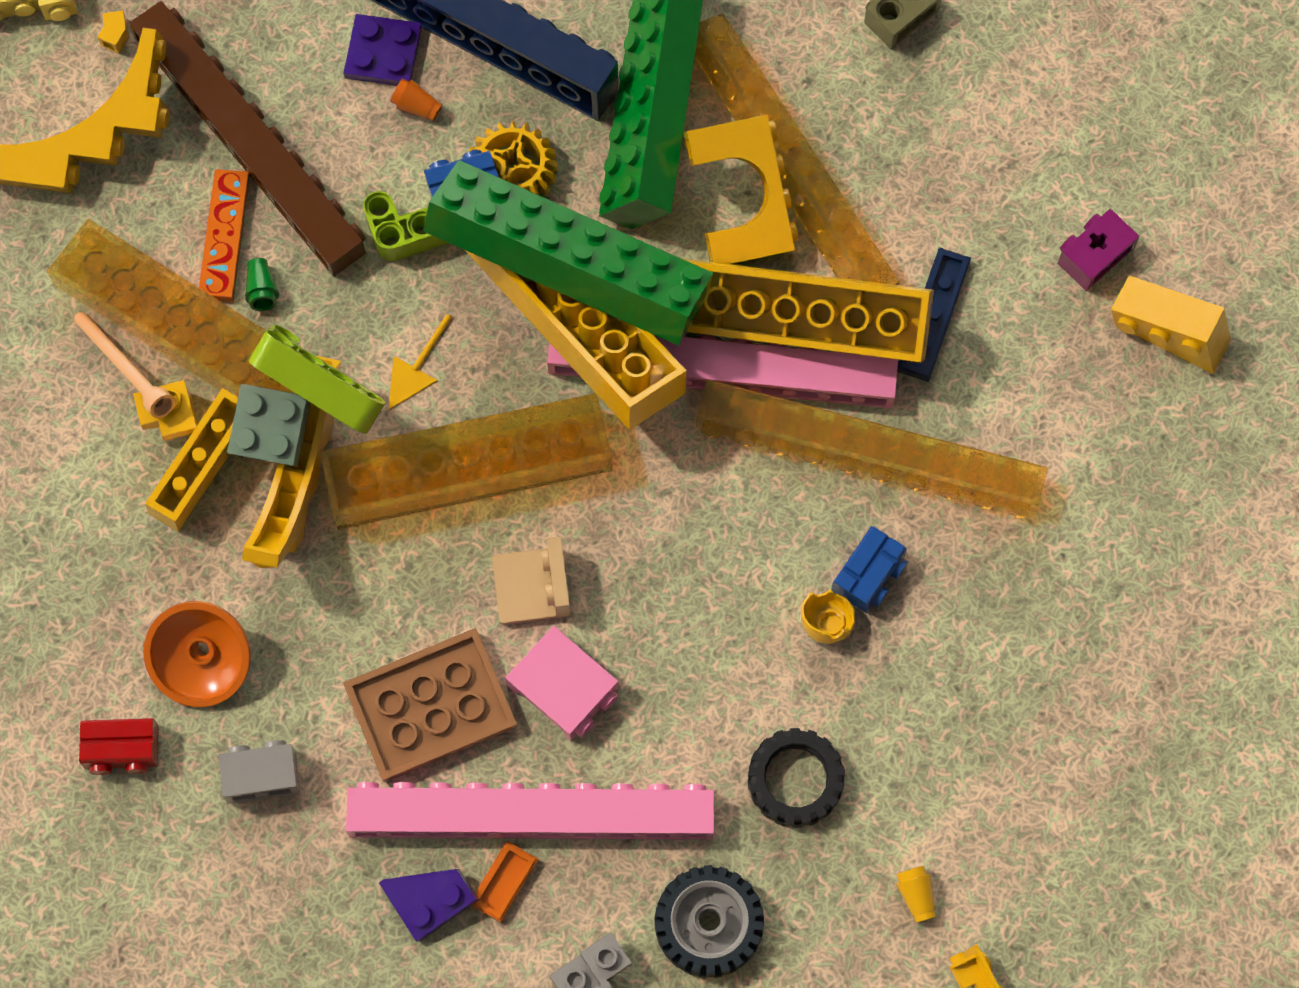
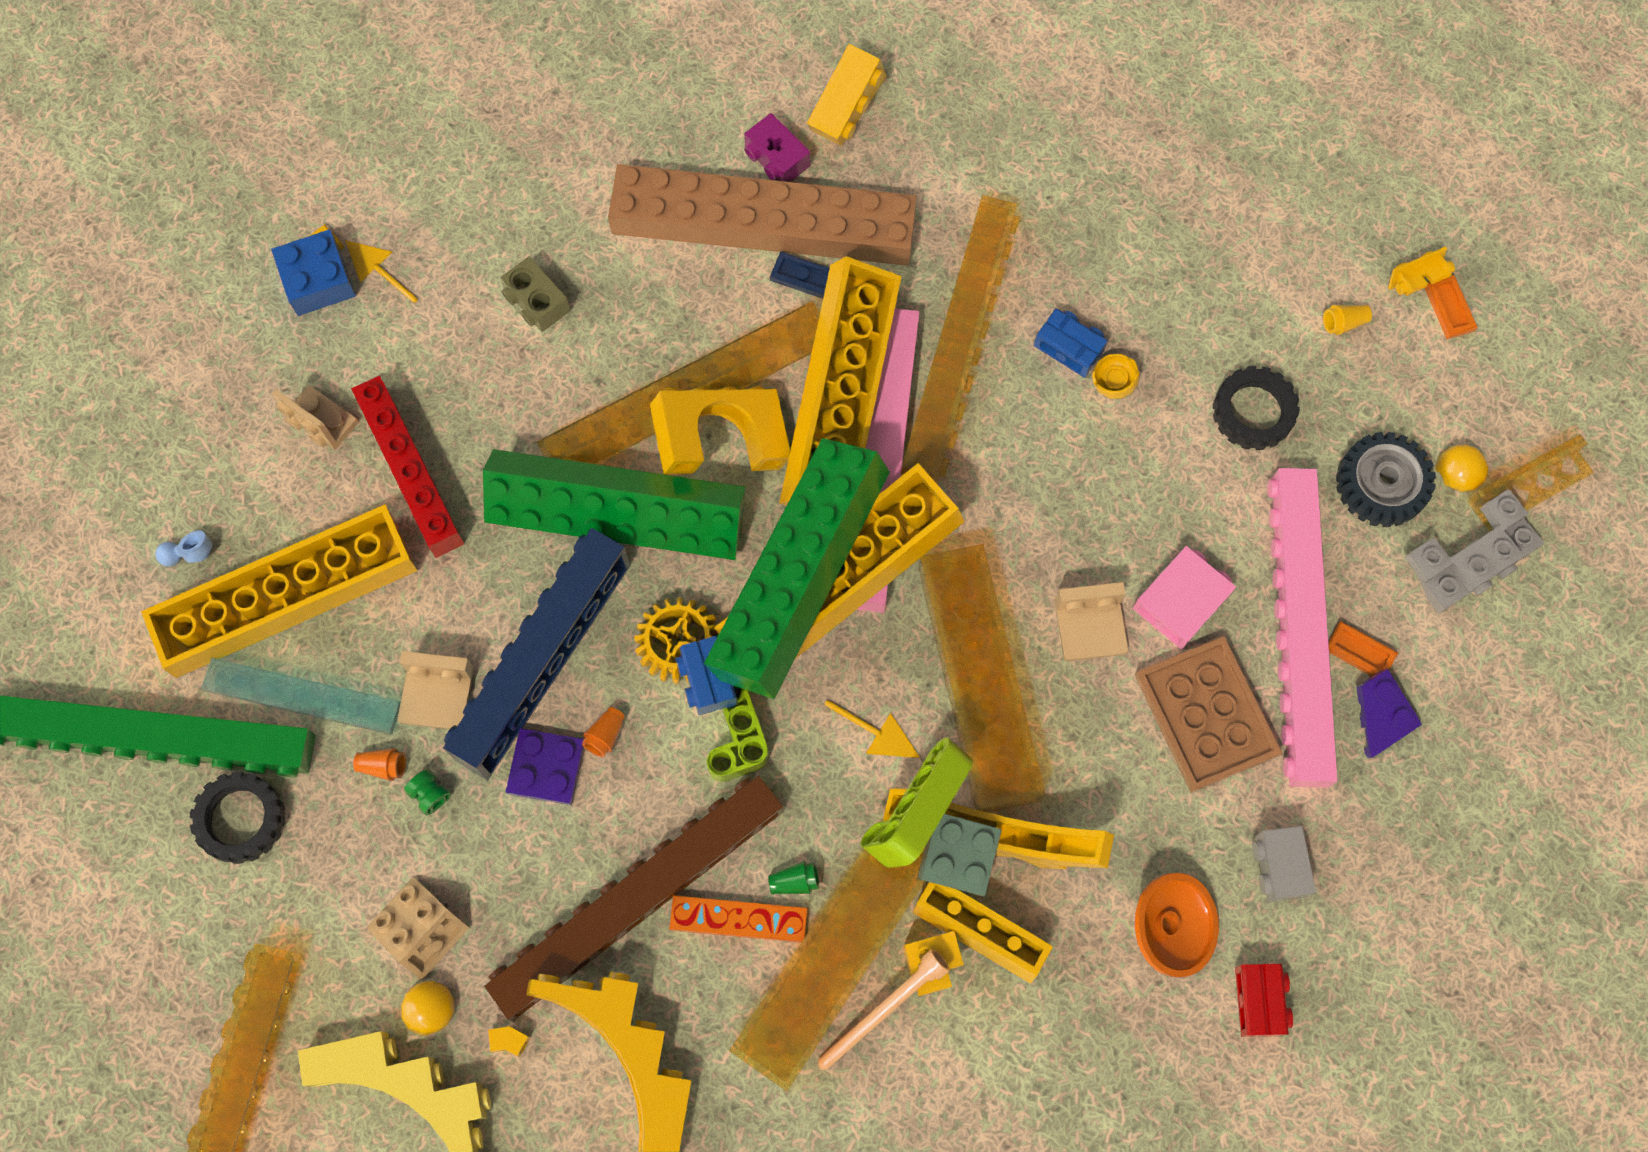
camera: 90 degrees left, 0 degrees up
(1012, 238) = (762, 214): none -> medium nougat brick

